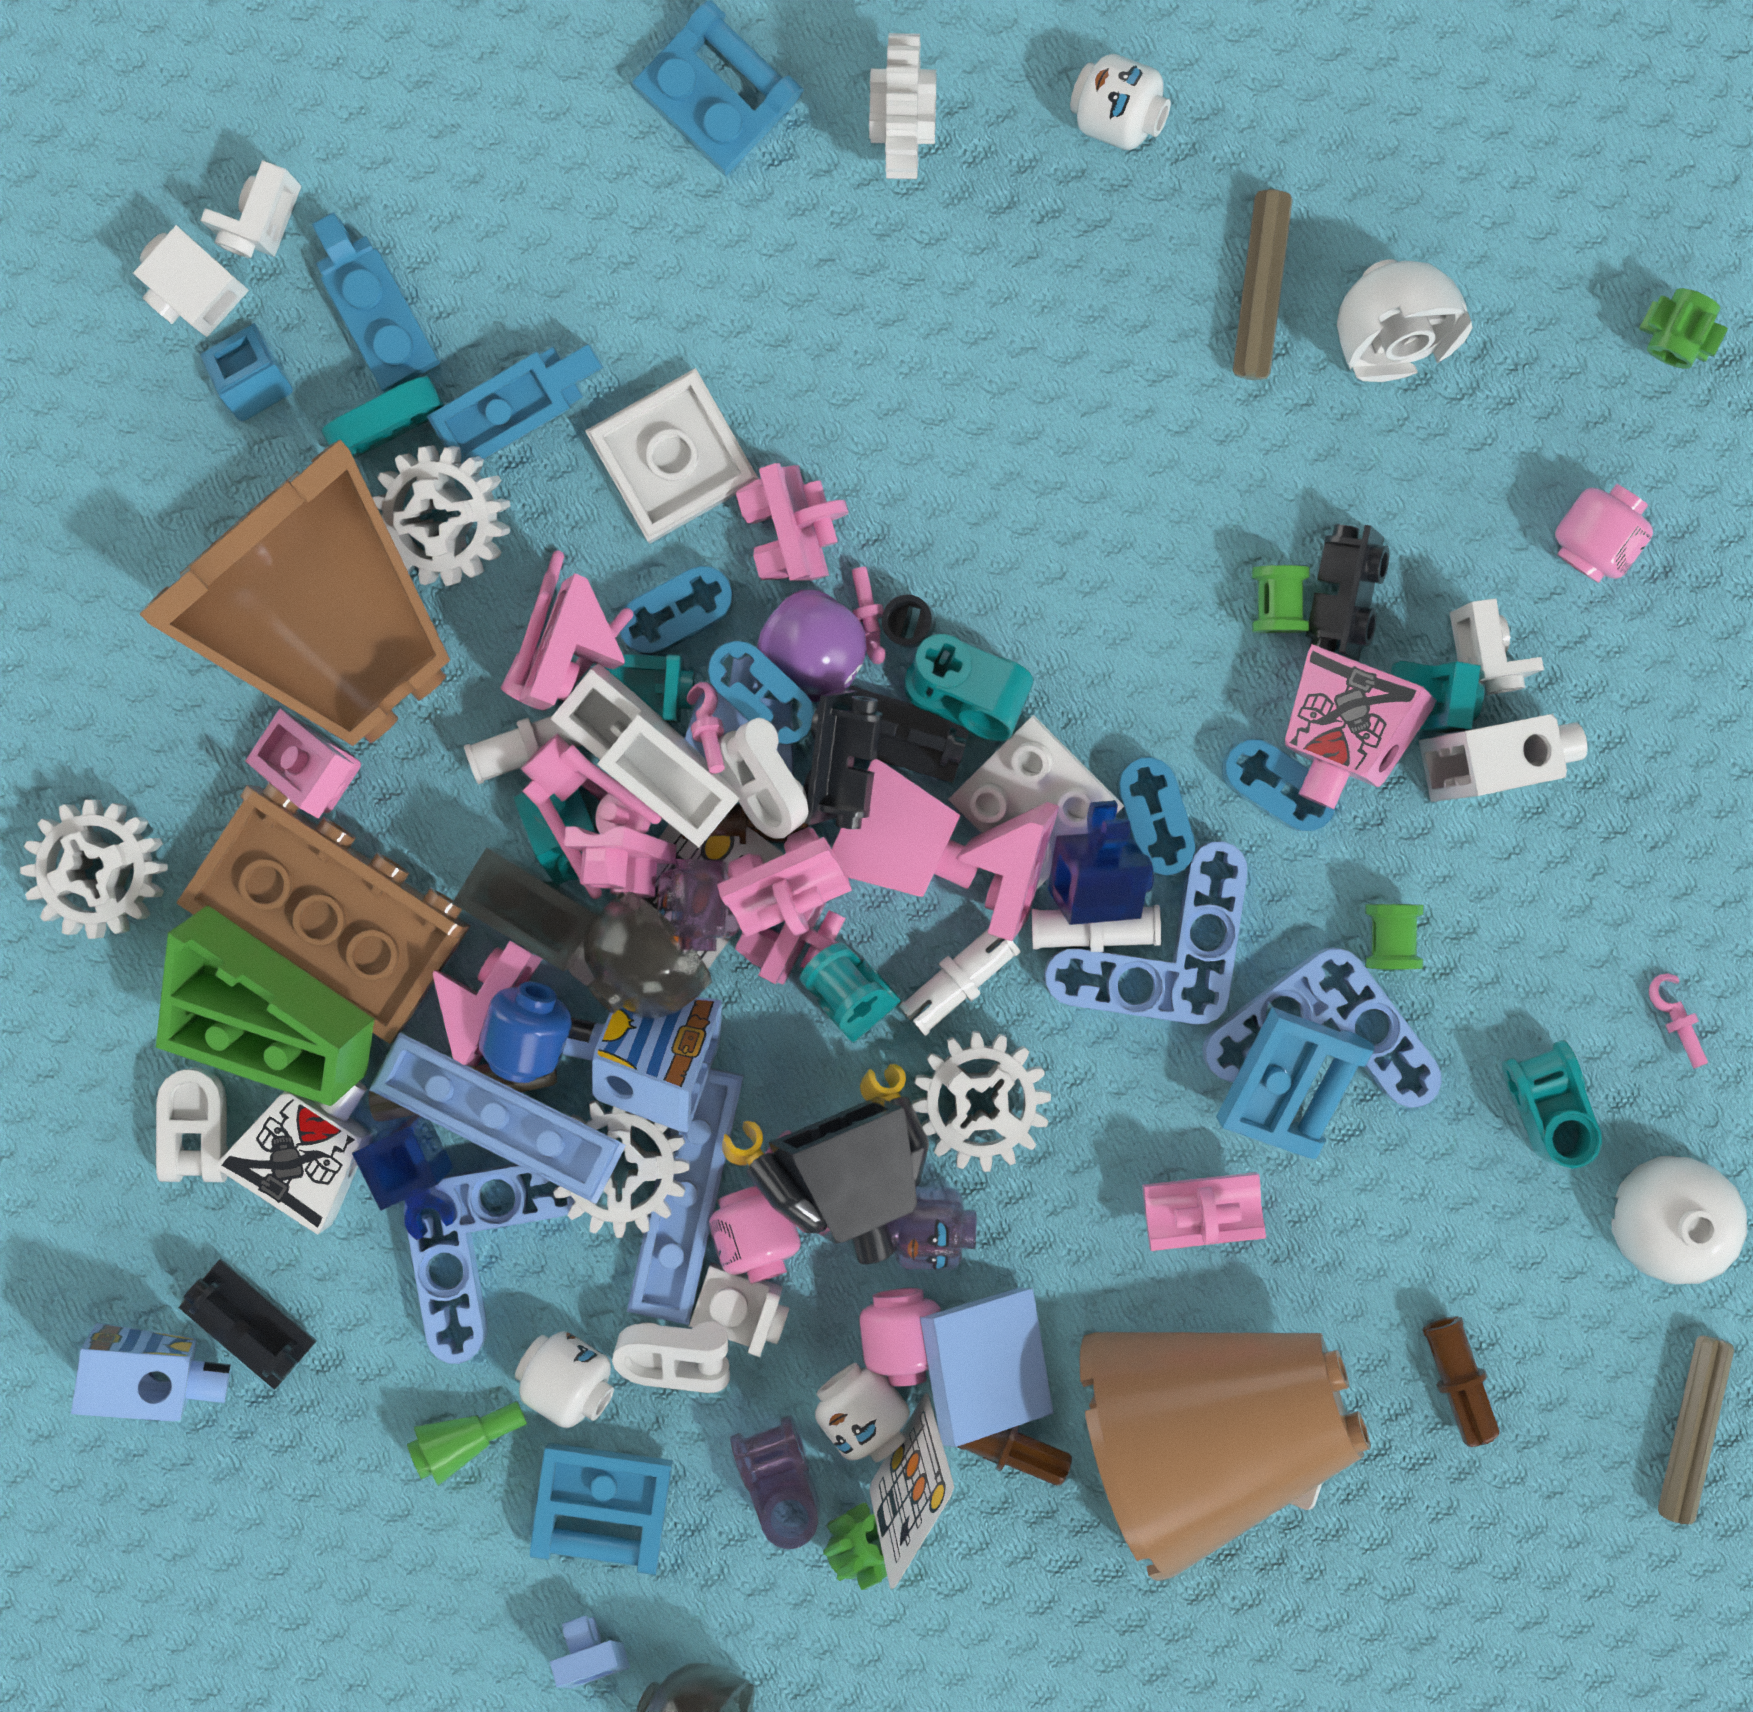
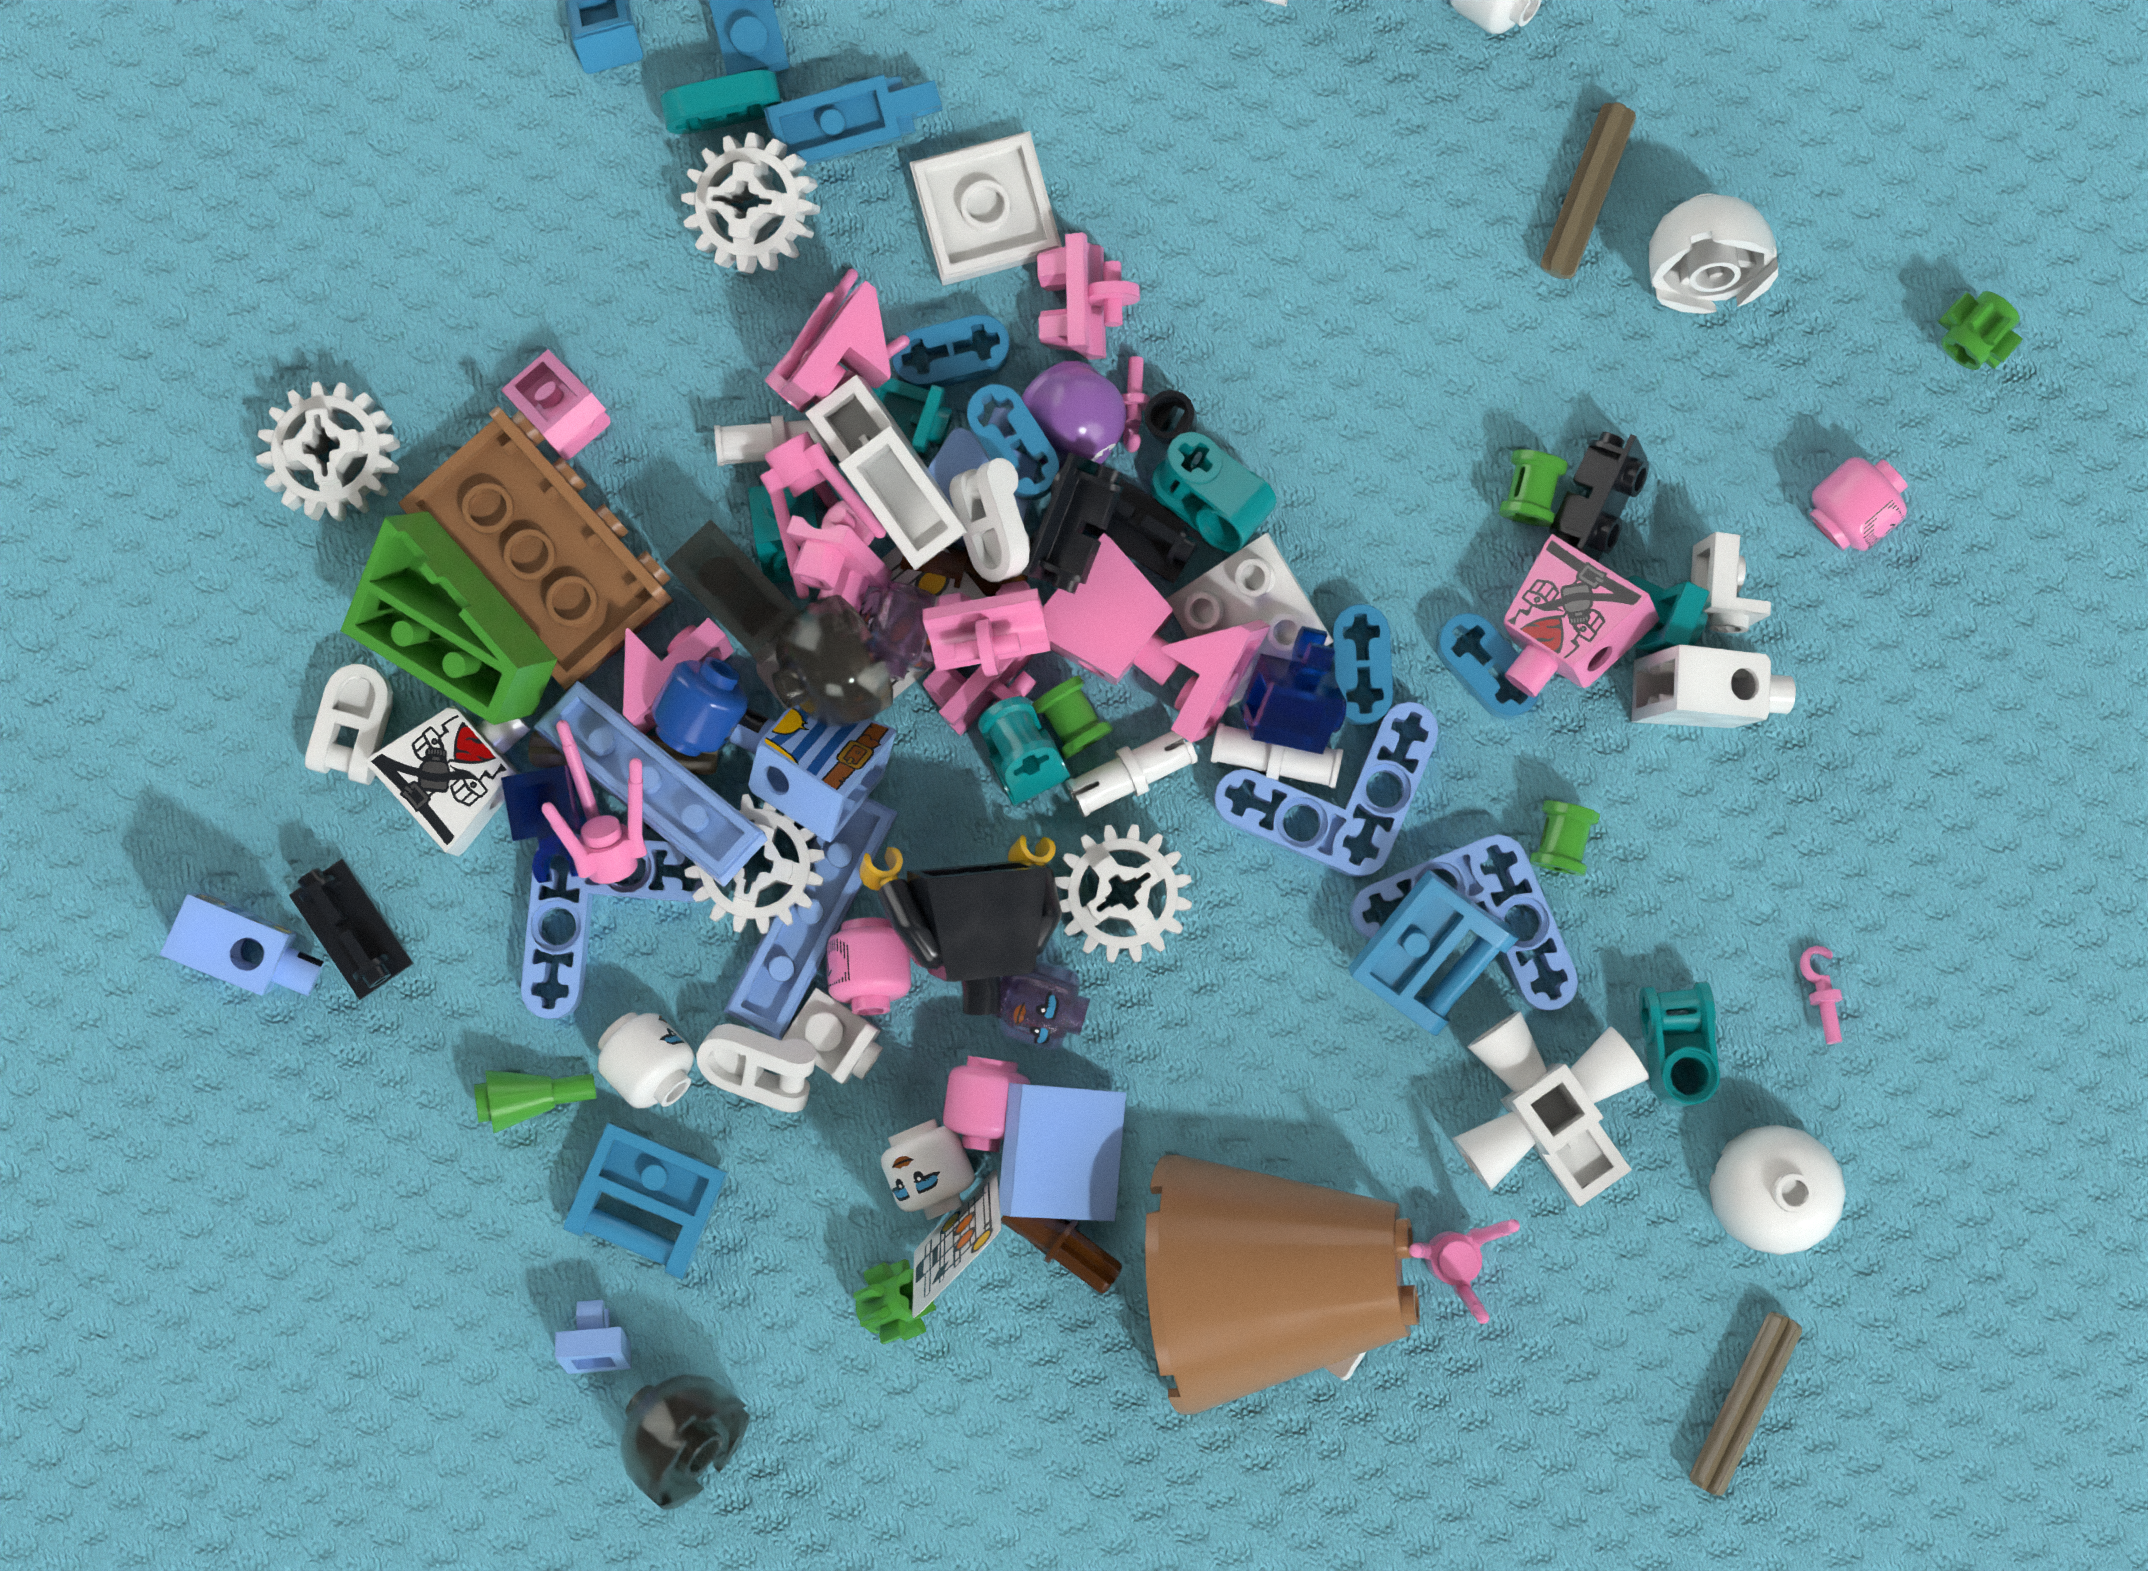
camera: 10 degrees right, 5 degrees down
(311, 604) = (609, 251): medium nougat cone -> none
(471, 1190) = (606, 847): none -> bright pink plant
(706, 727) = (952, 459): bright pink hand -> none
(776, 1470) = (827, 1212): clear purple piece -> none
(888, 941) = (1072, 716): none -> bright green bush
(1203, 1211) = (1312, 1055): bright pink hips -> none
(1390, 1369) = (1458, 1260): none -> bright pink plant
(1444, 1202) = (1551, 1110): none -> white brick
(1461, 1381) = (1525, 1295): reddish brown axle -> none

